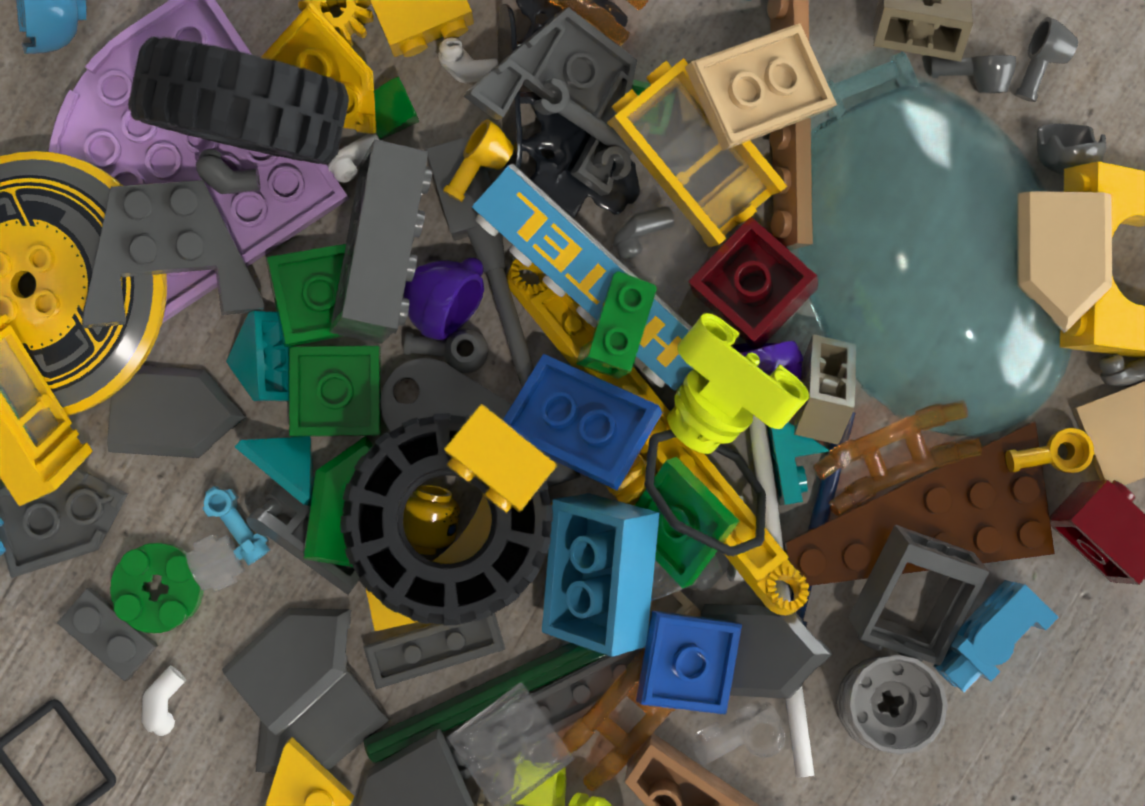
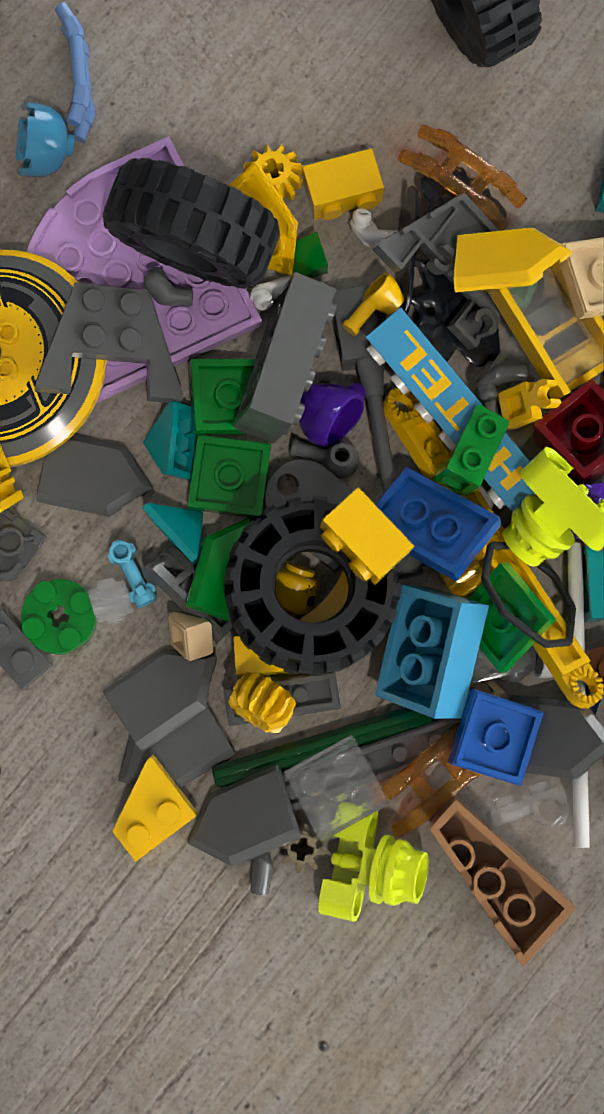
camera: 10 degrees right, 5 degrees down
(155, 702) = (43, 711): white arm -> none
(315, 590) = (190, 635): none -> tan slope
(409, 661) = (262, 702): none -> yellow gear
(625, 89) = (504, 259): none -> yellow tile
(675, 256) = (524, 402): none -> yellow plate

